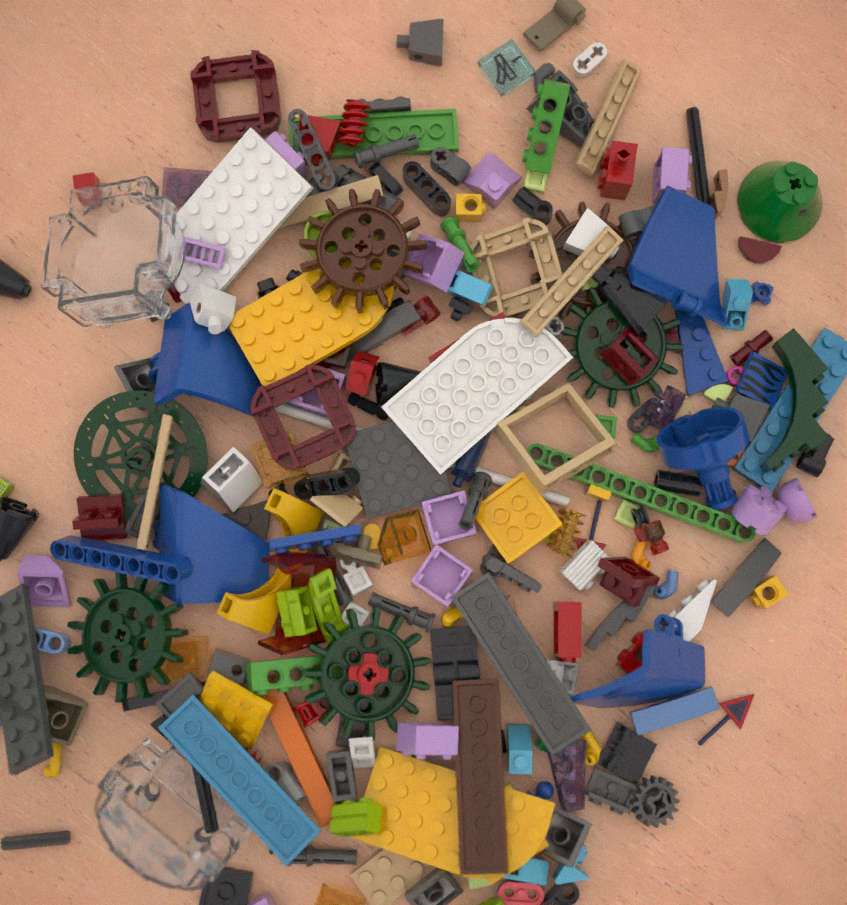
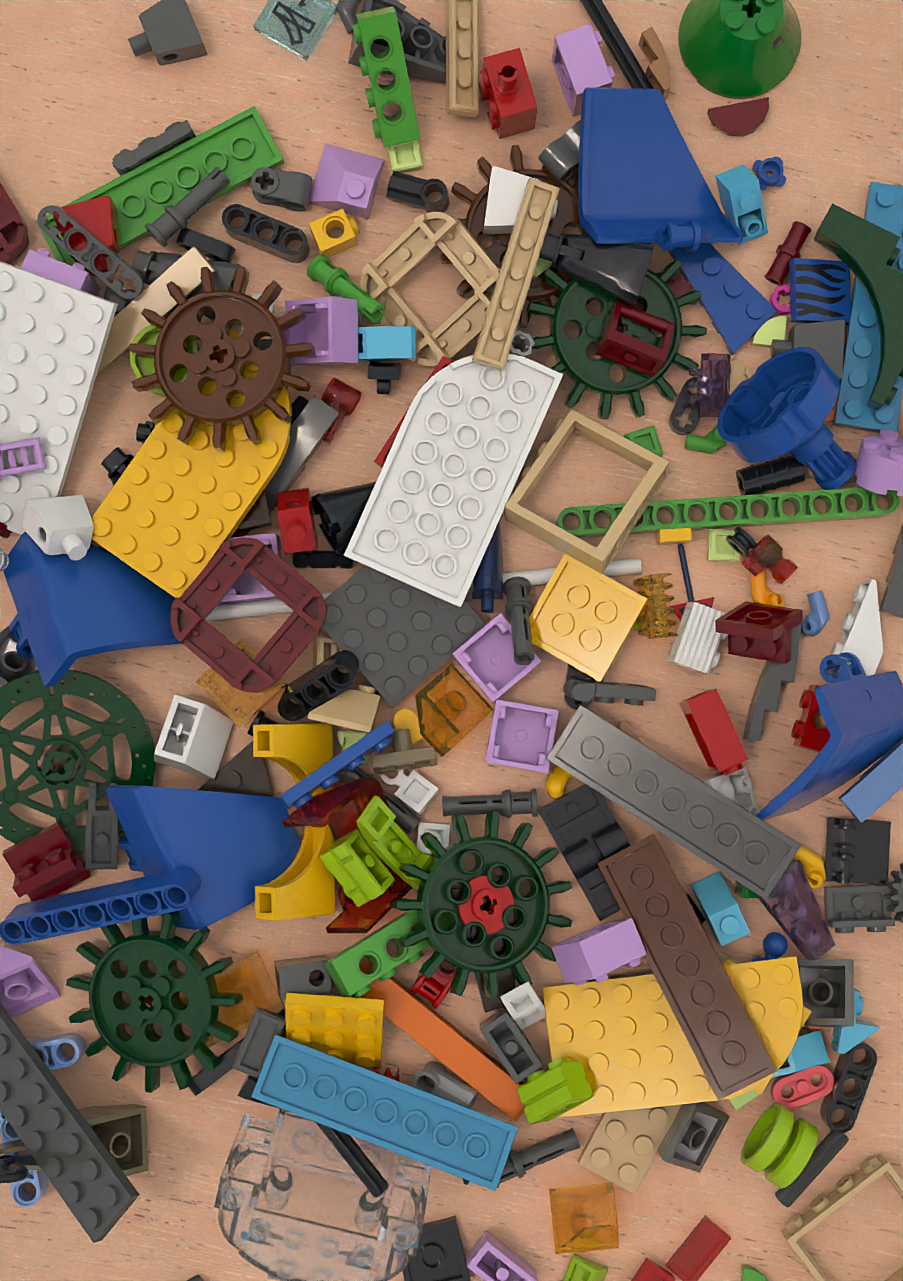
camera: 20 degrees left, 5 degrees up
(53, 769) = (141, 1208): yellow arm -> none
(155, 482) = (96, 788): tan tile -> none
(352, 123) = (128, 190): red piece -> none

